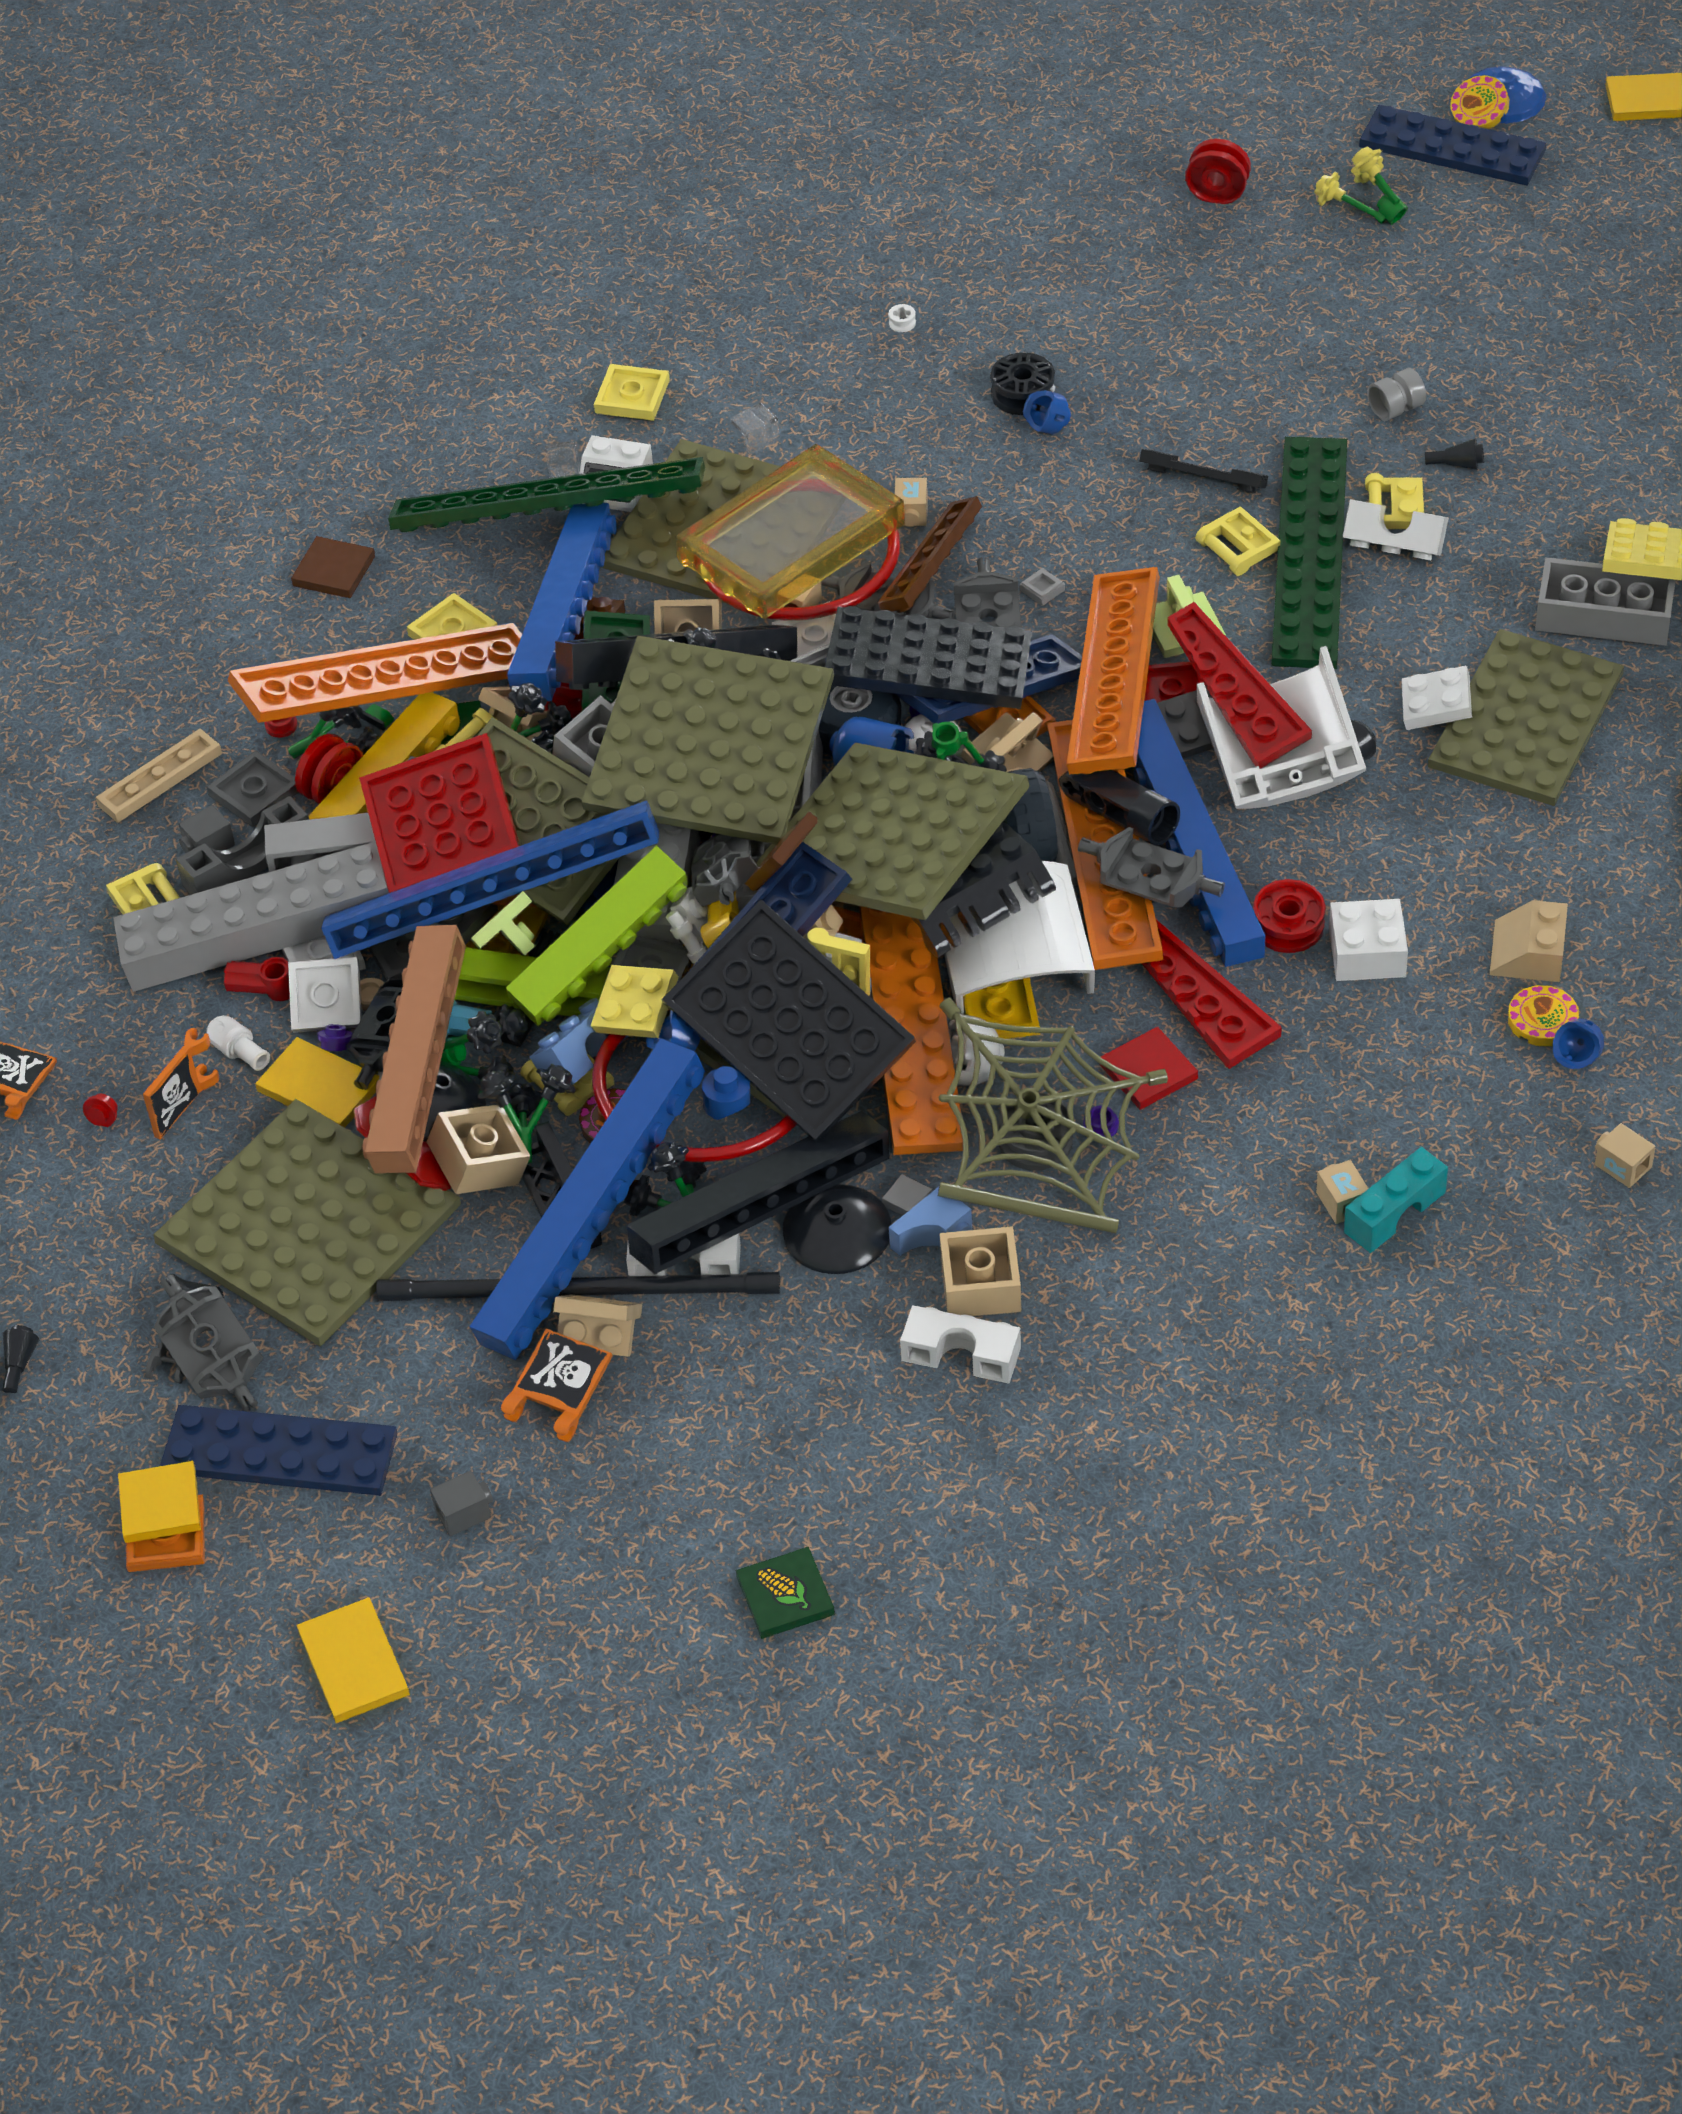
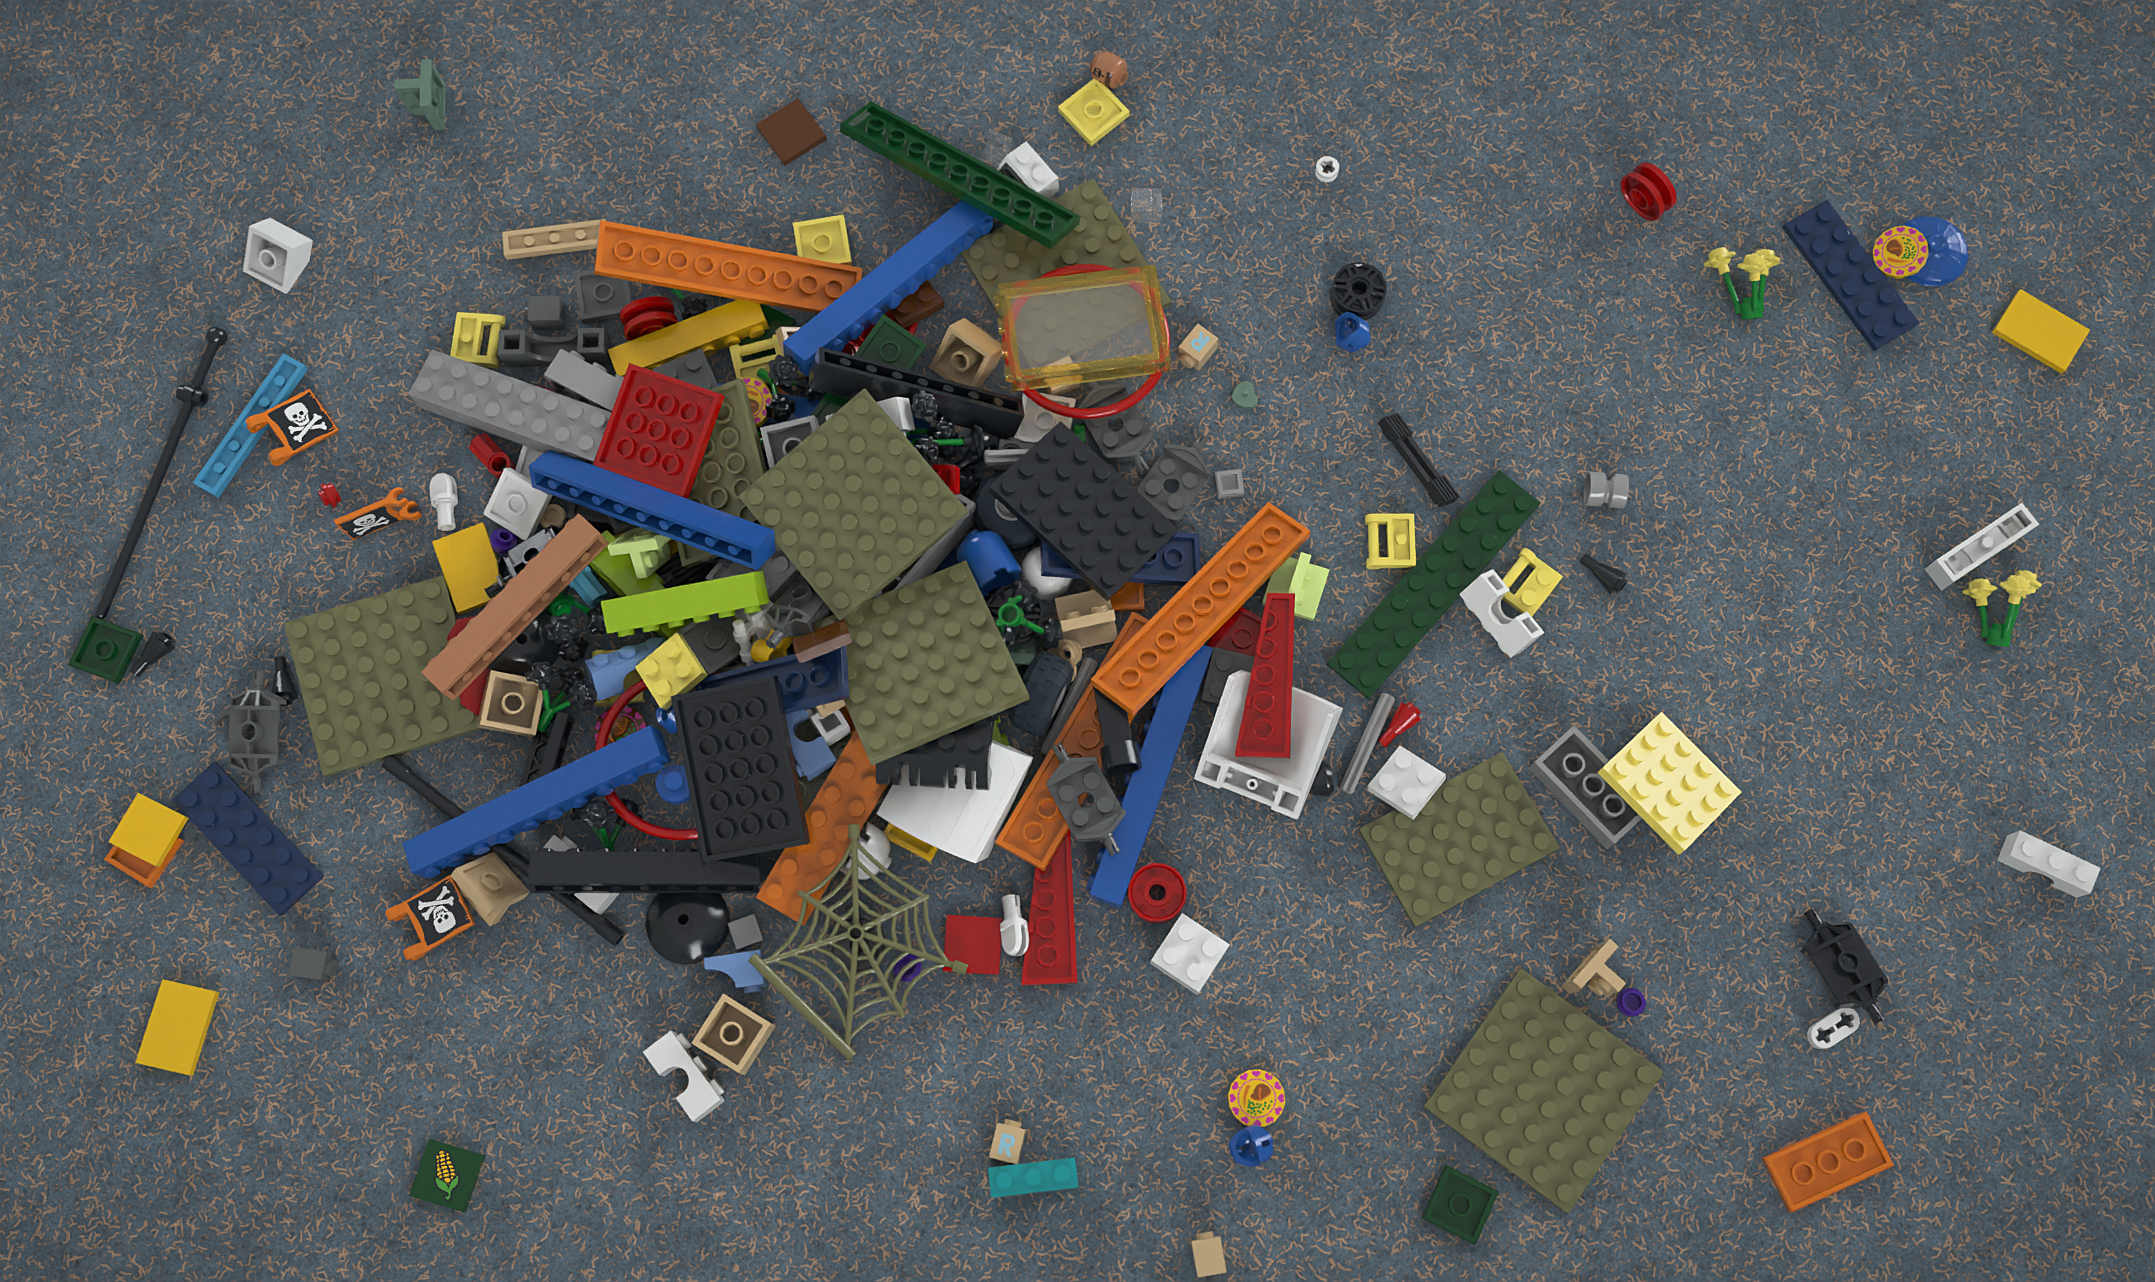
camera: 35 degrees right, 25 degrees up
(618, 350) = (1109, 69): none -> nougat head
(847, 956) = (808, 751): light yellow plate -> none
(929, 555) = (1168, 409): reddish brown plate -> none
(990, 518) = (1244, 396): none -> sand green piece
(1176, 1023) = (1013, 928): none -> white arm
(1369, 696) = (1367, 743): none -> light grey axle
(1385, 655) = (1403, 719): none -> red cone
(1530, 942) = (1294, 1035): tan slope -> none

